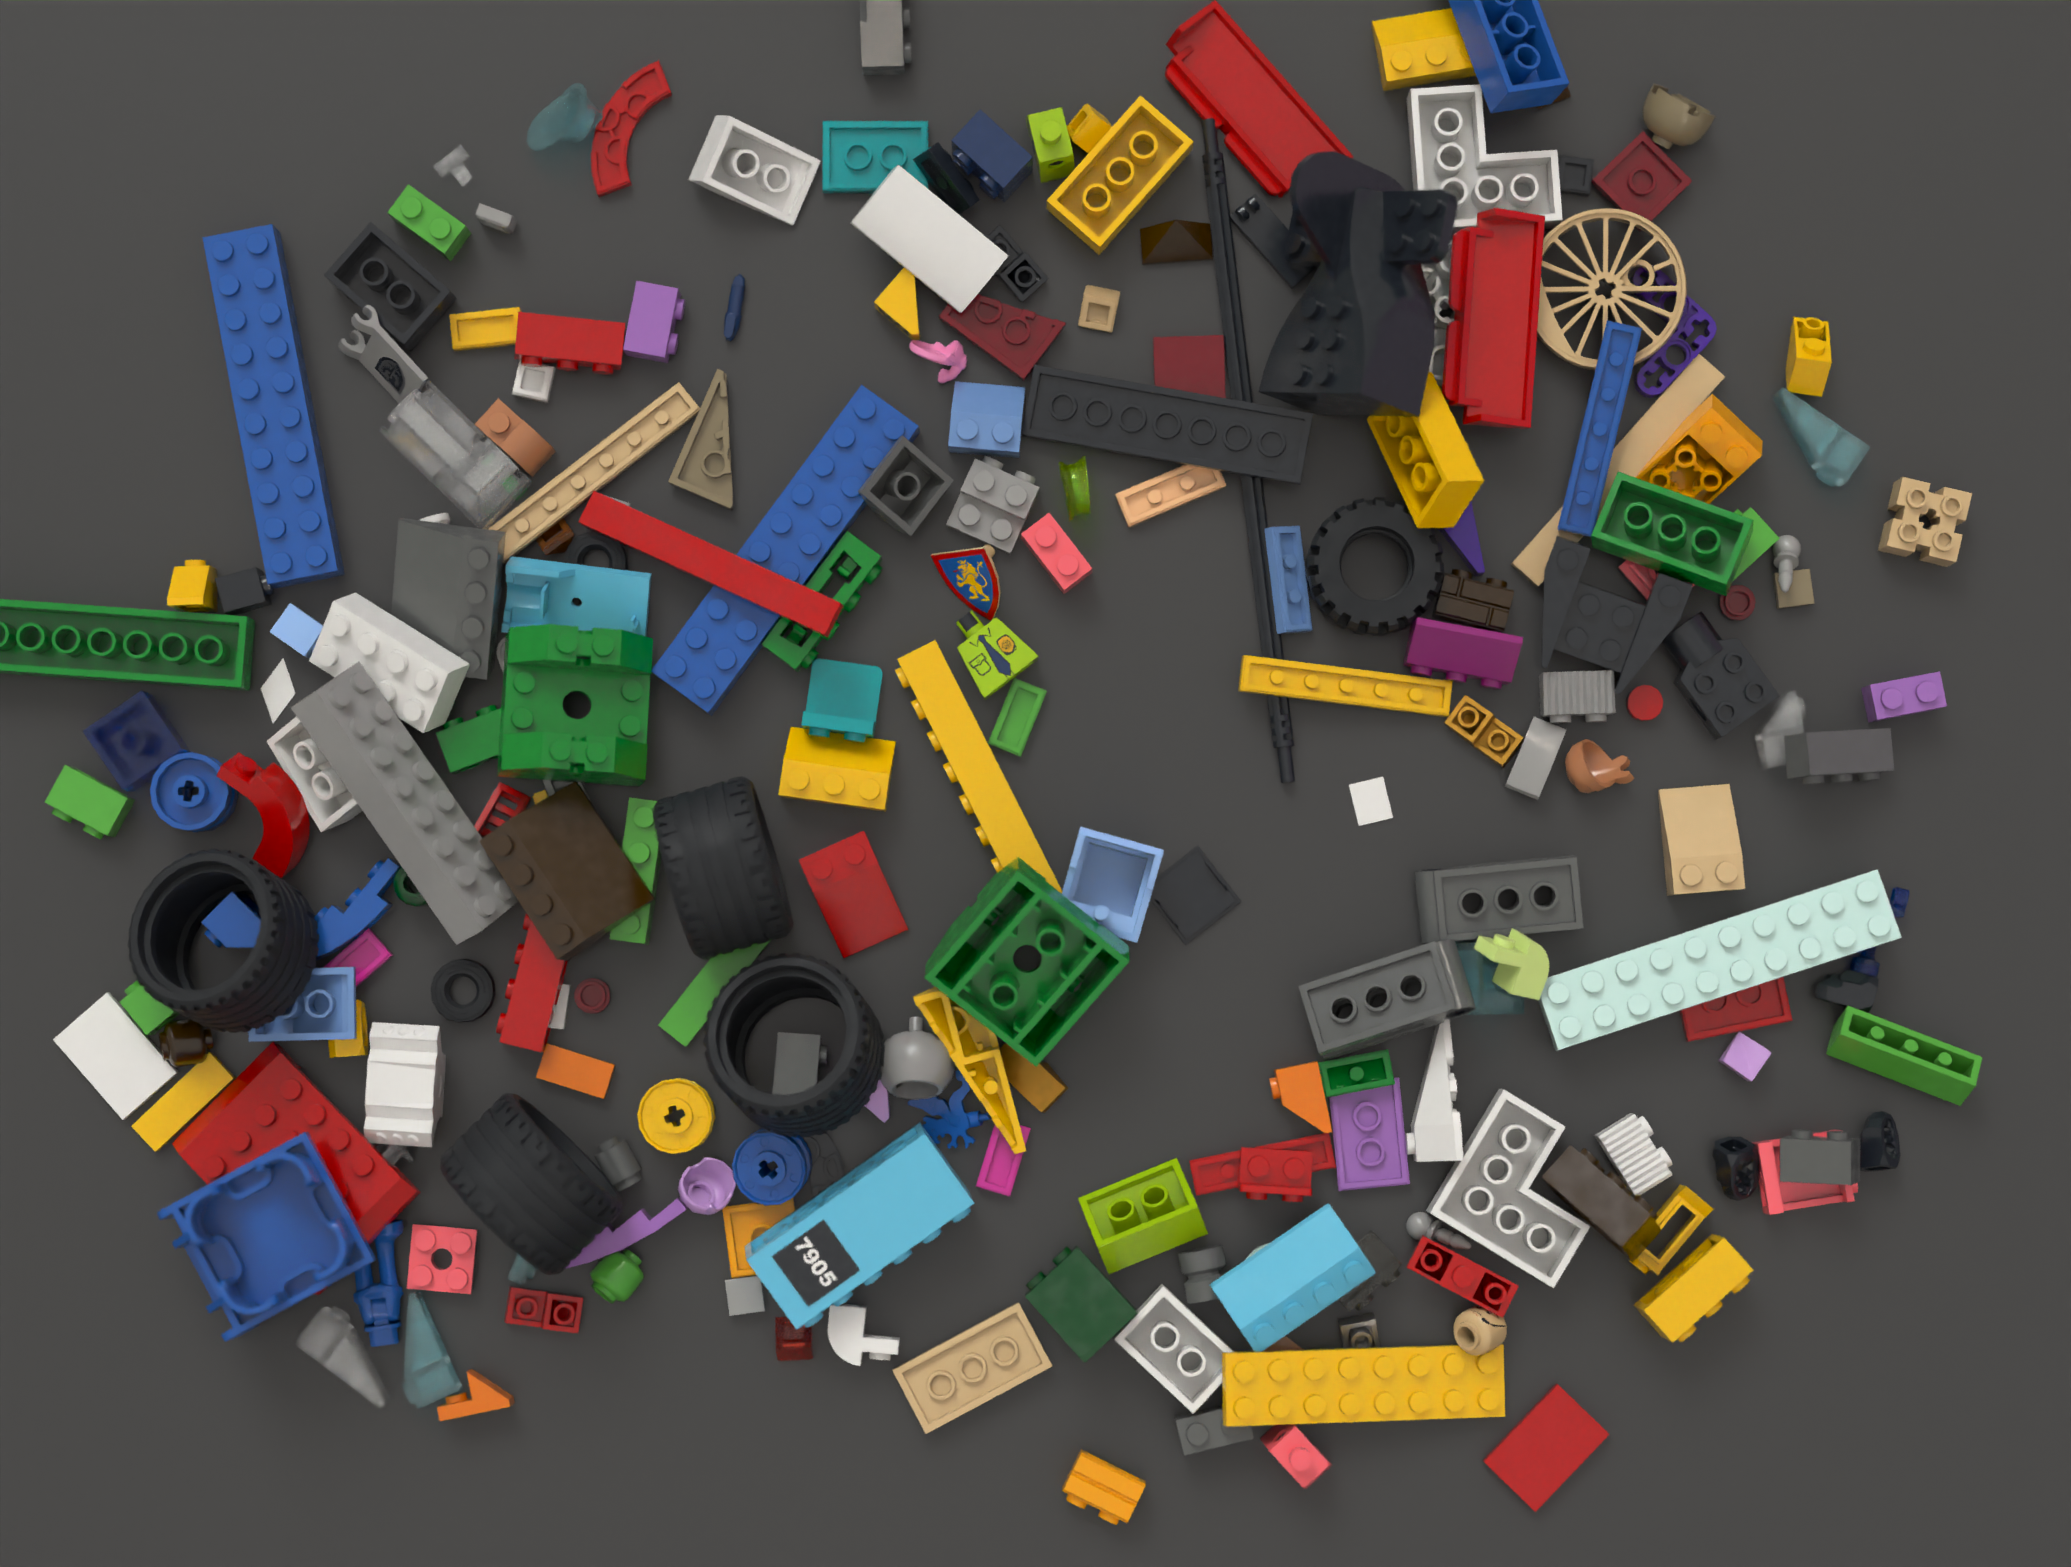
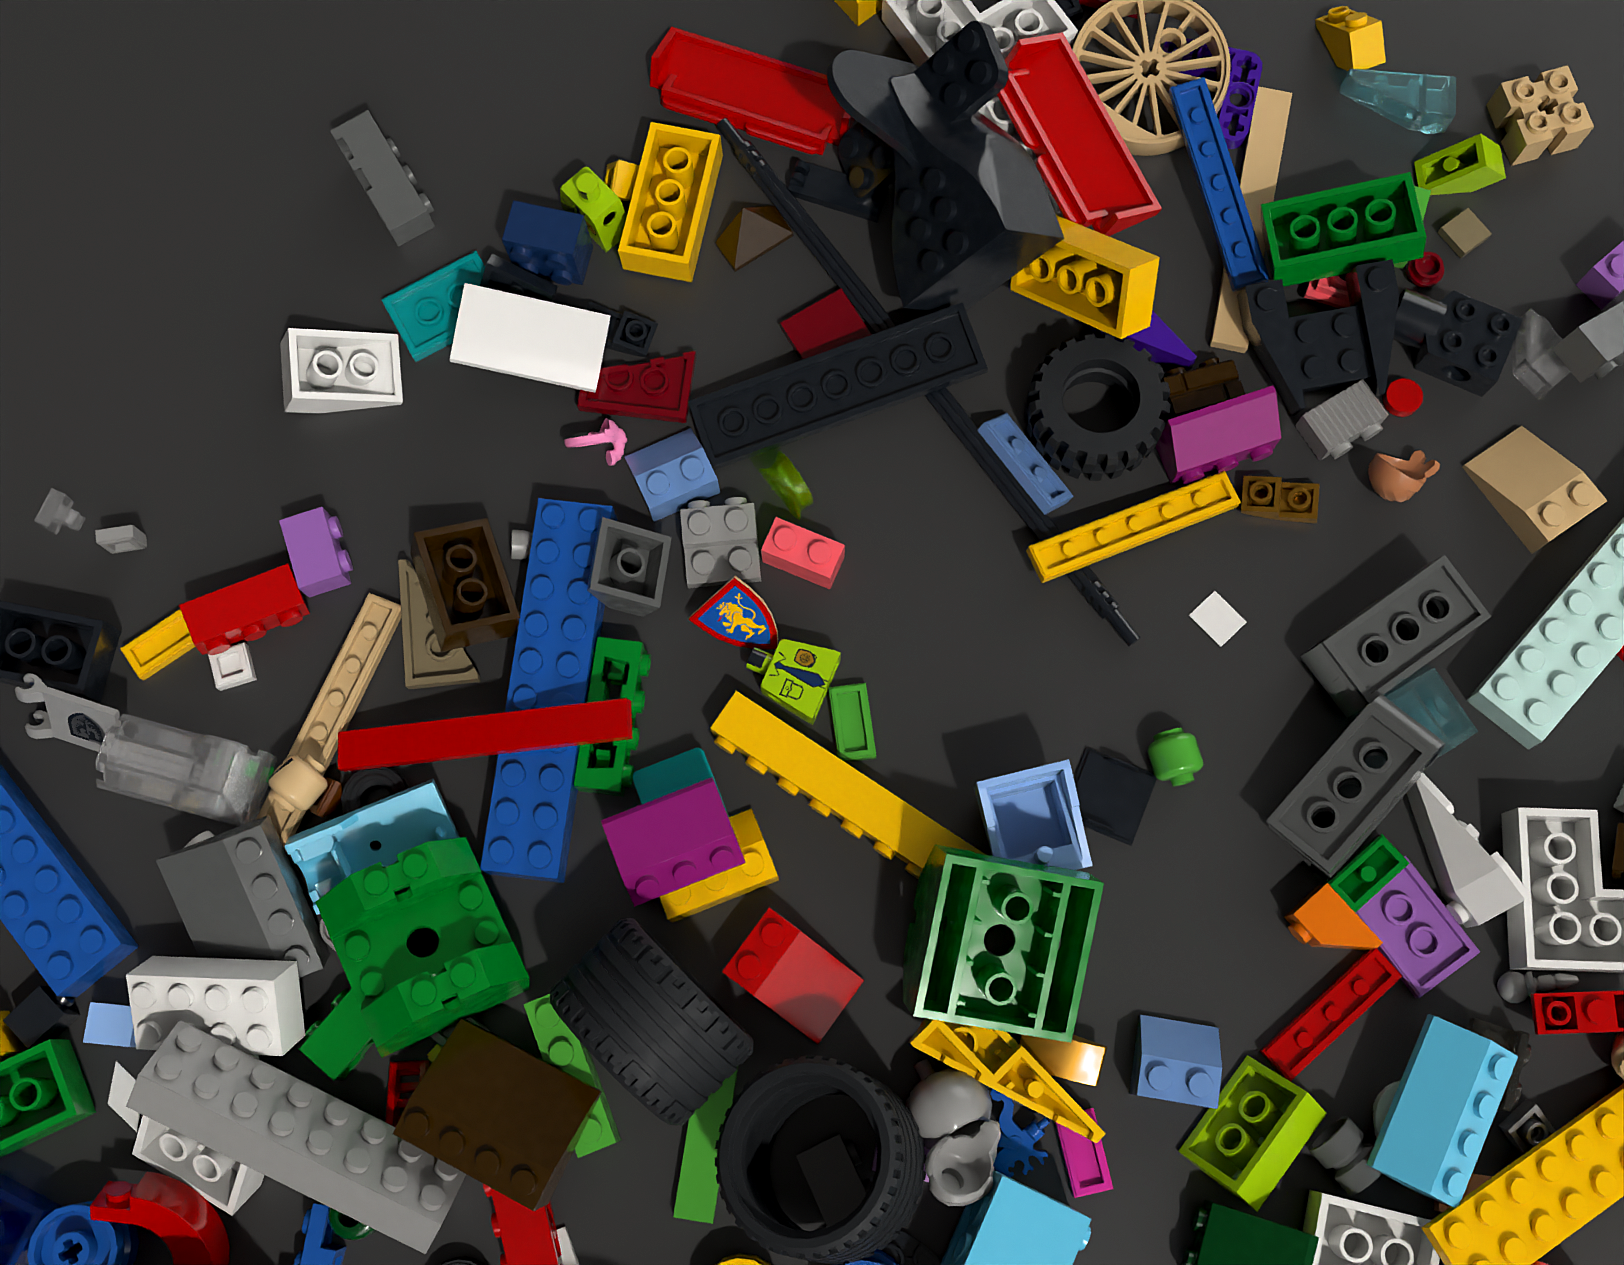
camera: 25 degrees left, 10 degrees down
(429, 222) = (58, 575): bright green brick -> none
(515, 437) = (239, 723): nougat brick -> none
(541, 517) = (297, 782): none -> tan head
(565, 119) = (146, 418): clear light blue piece -> none
(592, 995) = (592, 1225): dark red plate -> none
(618, 123) = (196, 399): red tile -> none
(733, 313) = (389, 507): dark blue piece -> none
(761, 424) = (464, 584): none -> dark brown brick
(815, 737) = (673, 841): none -> magenta slope
(827, 411) = (521, 544): none -> light grey hinge
(899, 304) = (535, 415): yellow slope -> none
(901, 1111) = (962, 1165): none -> light grey hair
(1099, 308) = (718, 327): tan slope -> none
(1116, 1130) = (1177, 1062): none -> medium blue slope
(1167, 492) = (871, 448): light nougat tile -> none
(1261, 894) = (1175, 756): none -> bright green head
(1275, 1173) = (1352, 1015): red bracket -> none
(1521, 963) = (1459, 681): yellowish green brick -> none
(1535, 758) = (1342, 496): light grey slope -> none
(1704, 453) = (1319, 153): light orange slope -> none
(1786, 559) = (1444, 210): light grey bar -> none
(1825, 530) = (1461, 167): none -> lime slope

